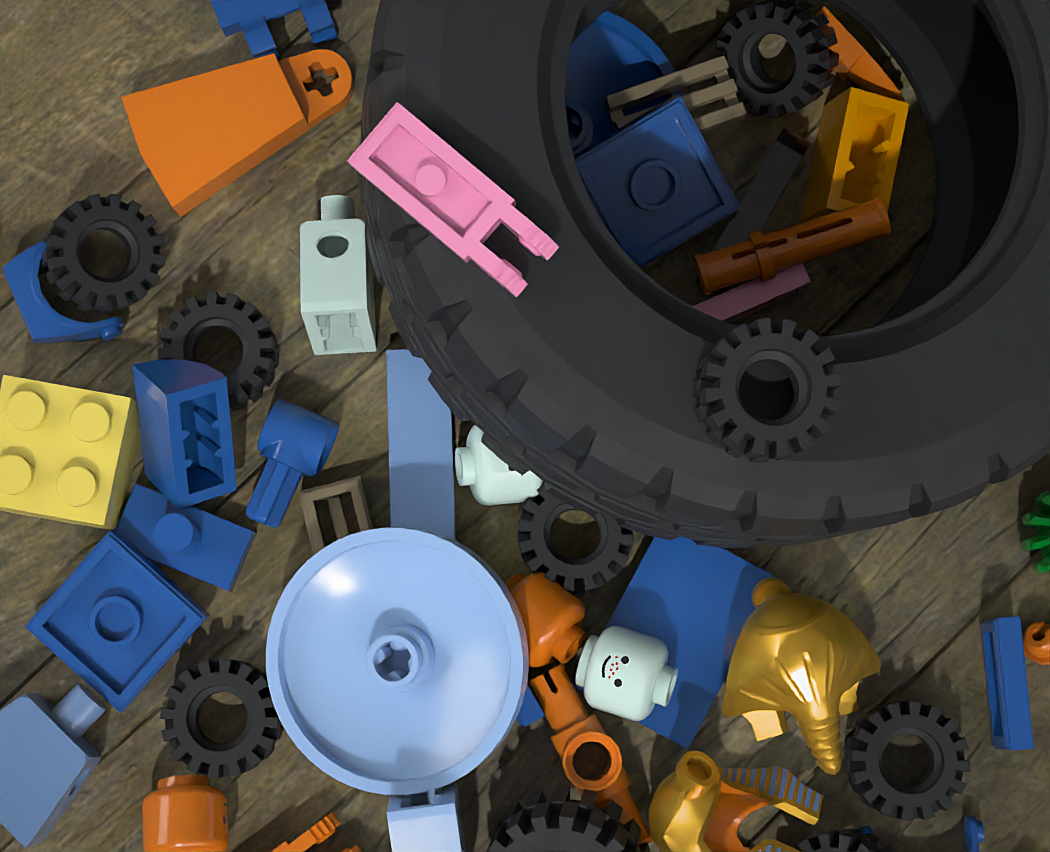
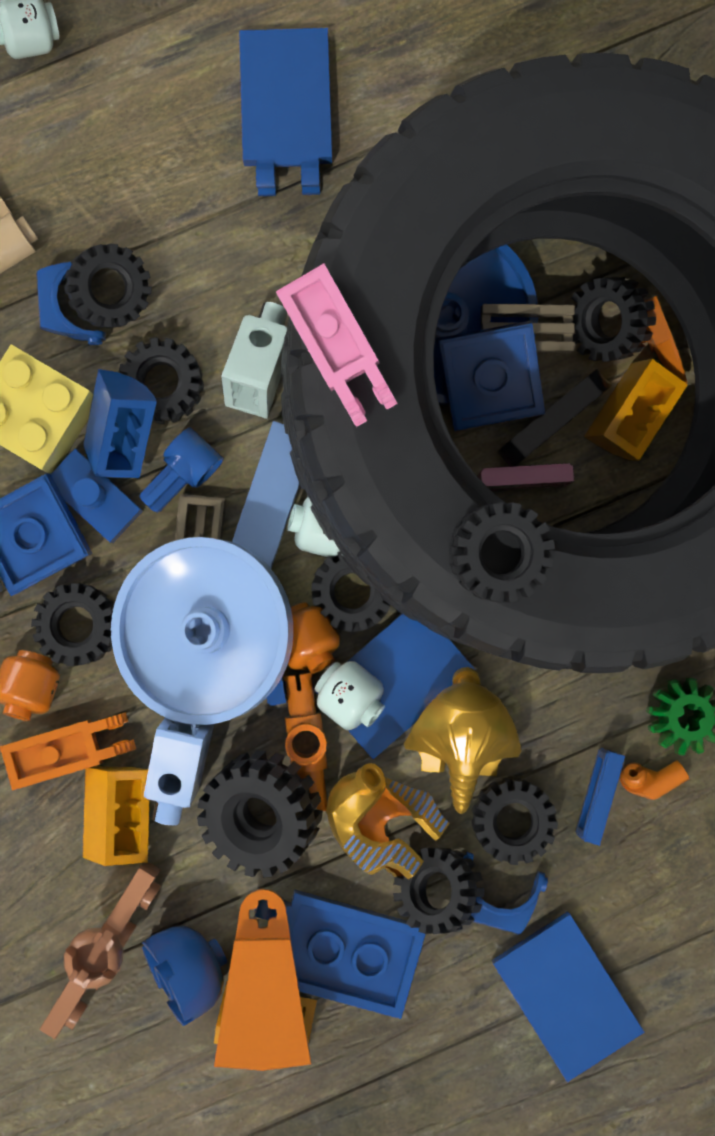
camera: 15 degrees right, 5 degrees up
(230, 119) = (225, 225): orange piece -> none
(767, 253) = (569, 452): orange pin -> none

